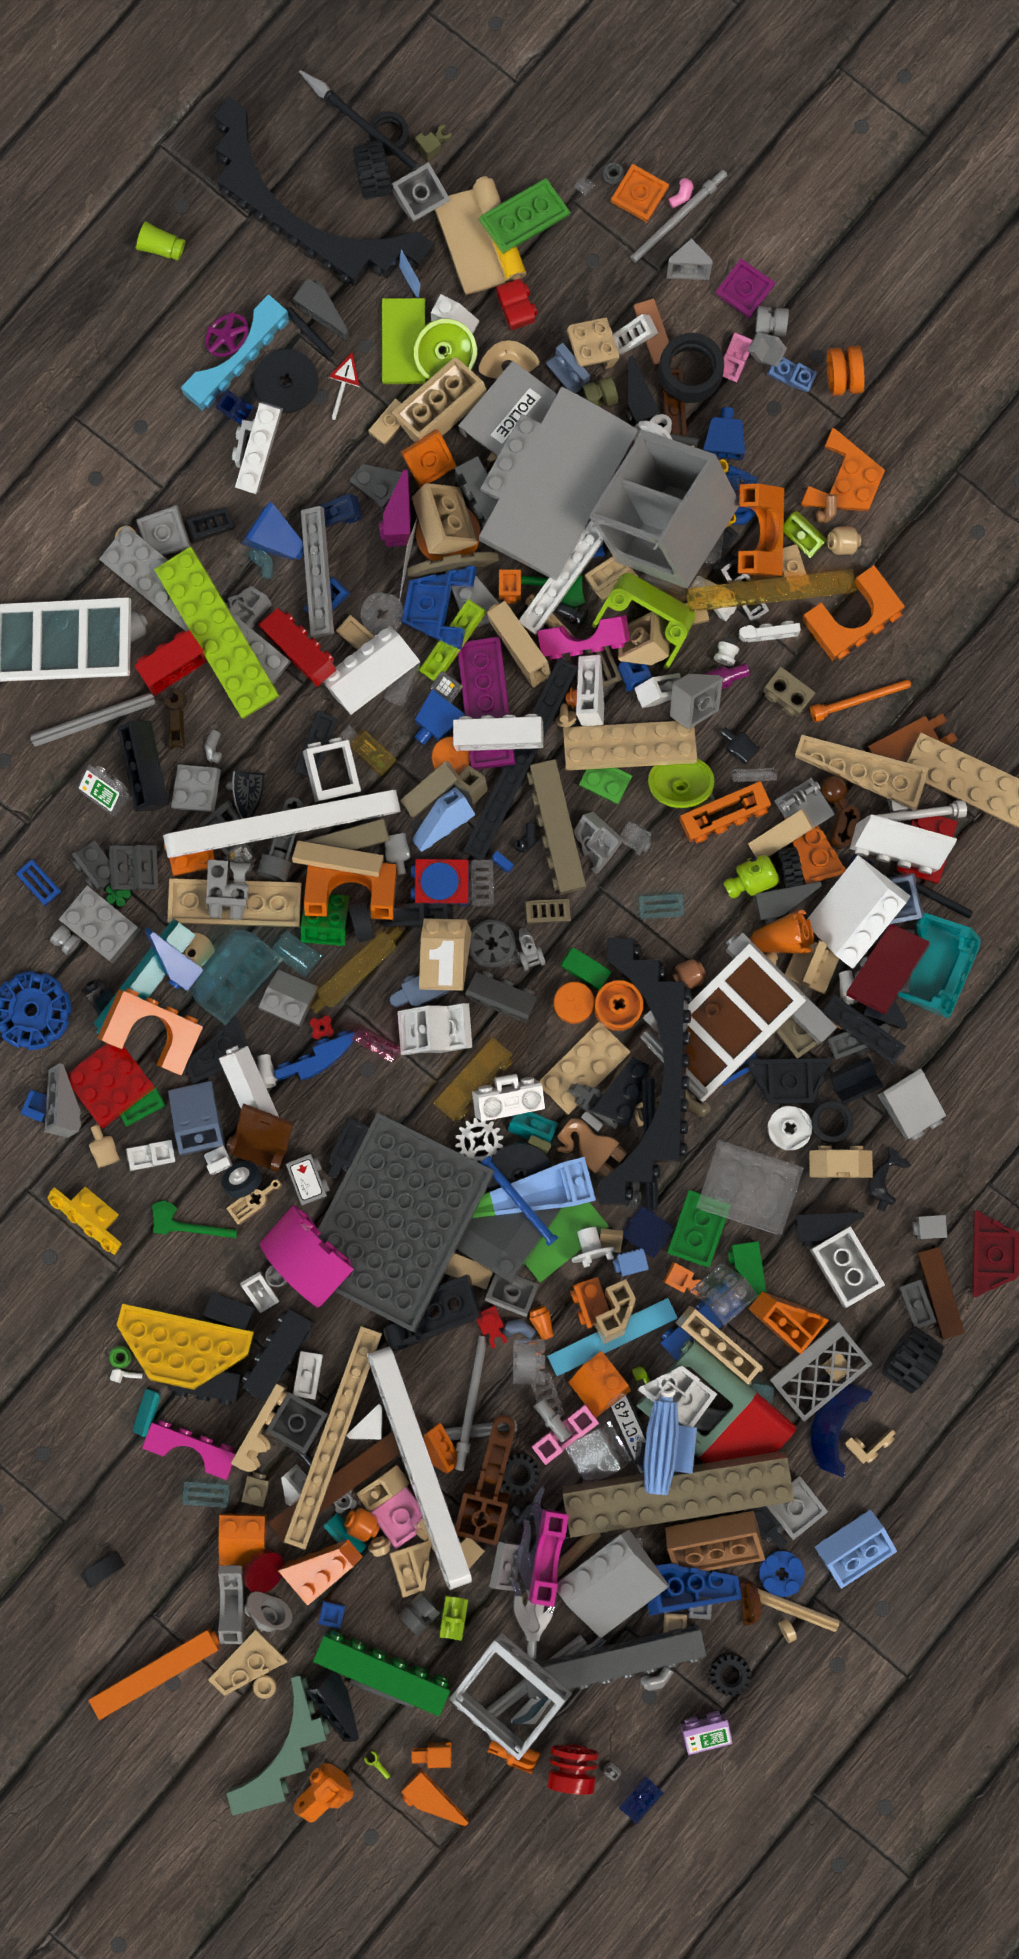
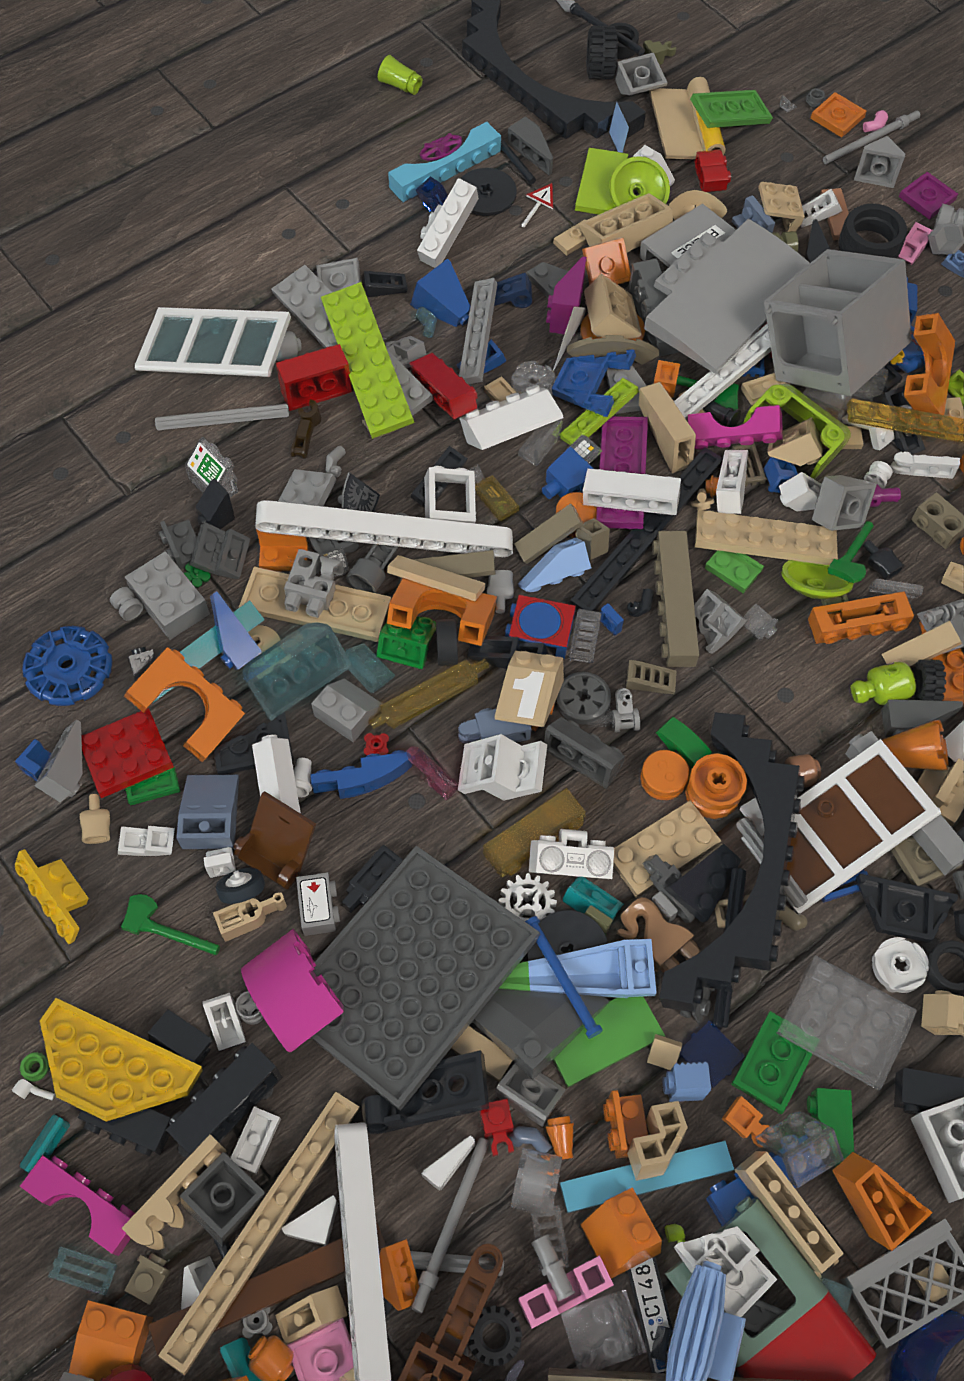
camera: 10 degrees right, 20 degrees down
(51, 896) = (125, 561): blue tile -> none
(116, 828) = (215, 506): none -> black slope
(143, 766) = (258, 460): black brick -> none
(458, 1363) = (443, 1169): none -> white slope
(591, 1247) = (640, 1055): white piece -> none
(642, 907) = (777, 702): clear light blue tile -> none
(703, 768) = (844, 567): none -> green piece

